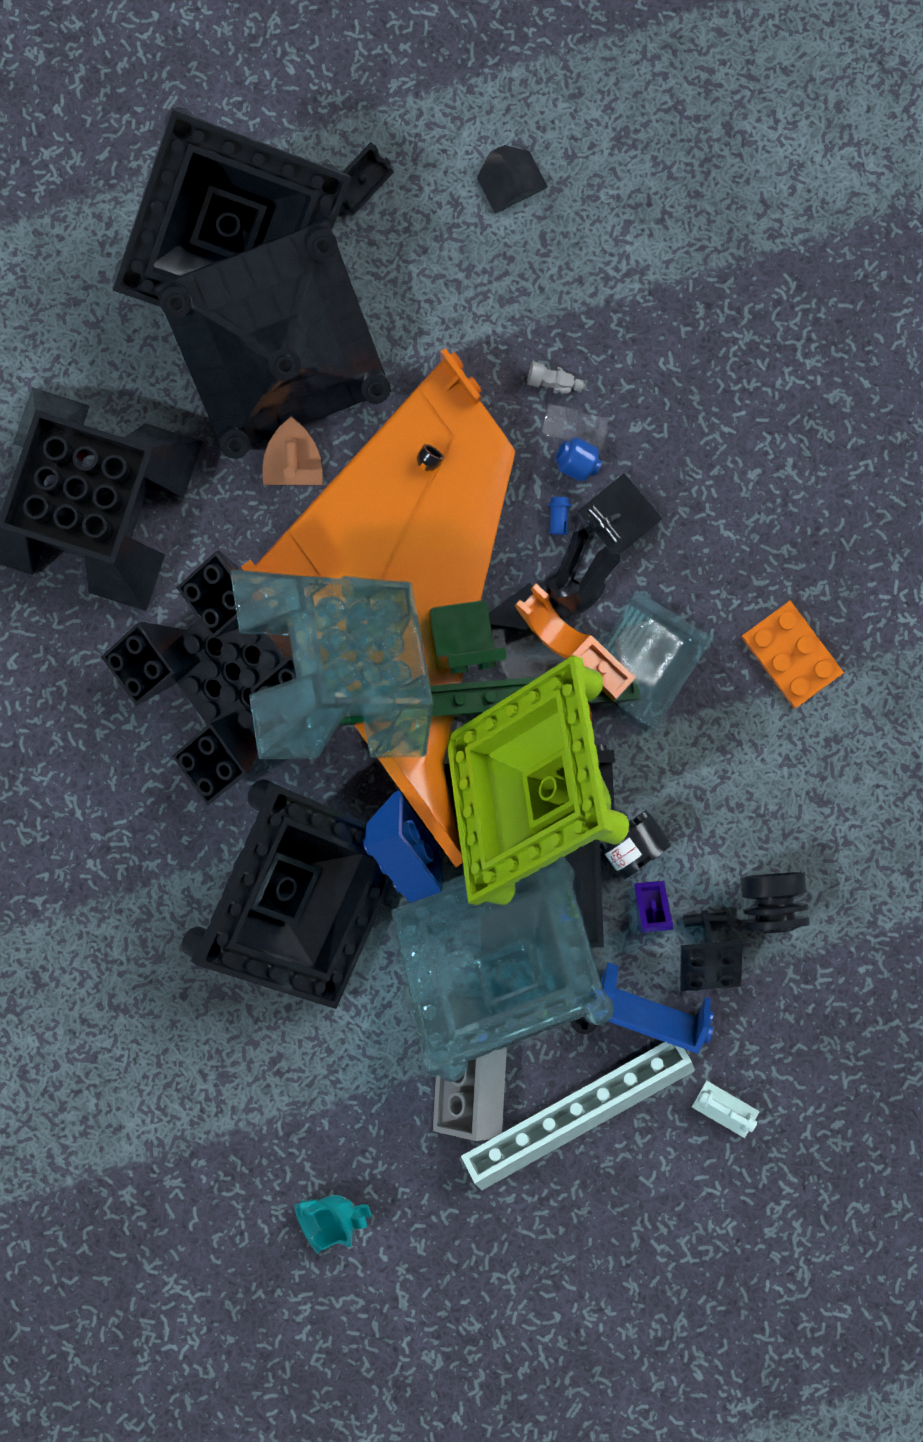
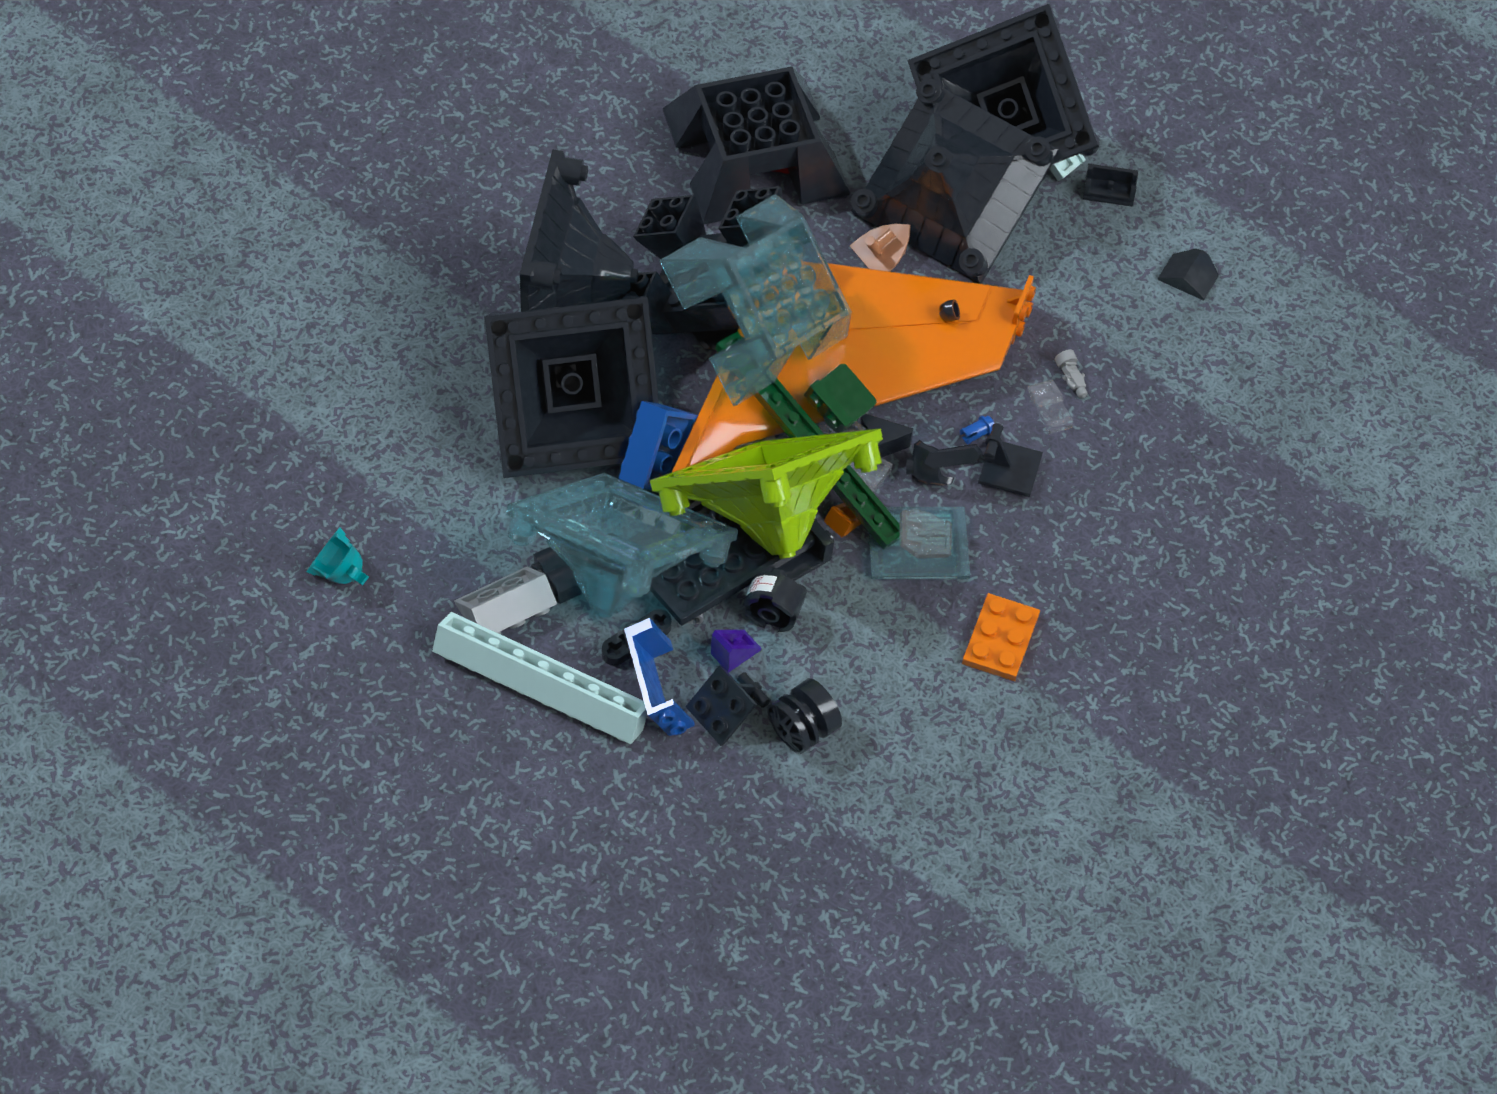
camera: 50 degrees right, 30 degrees down
(149, 814) = (566, 251): none -> black piece
(567, 642) = (889, 475): orange piece -> none
(578, 459) = (1027, 416): blue head -> none
(726, 1109) = (615, 785): light aqua hinge -> none

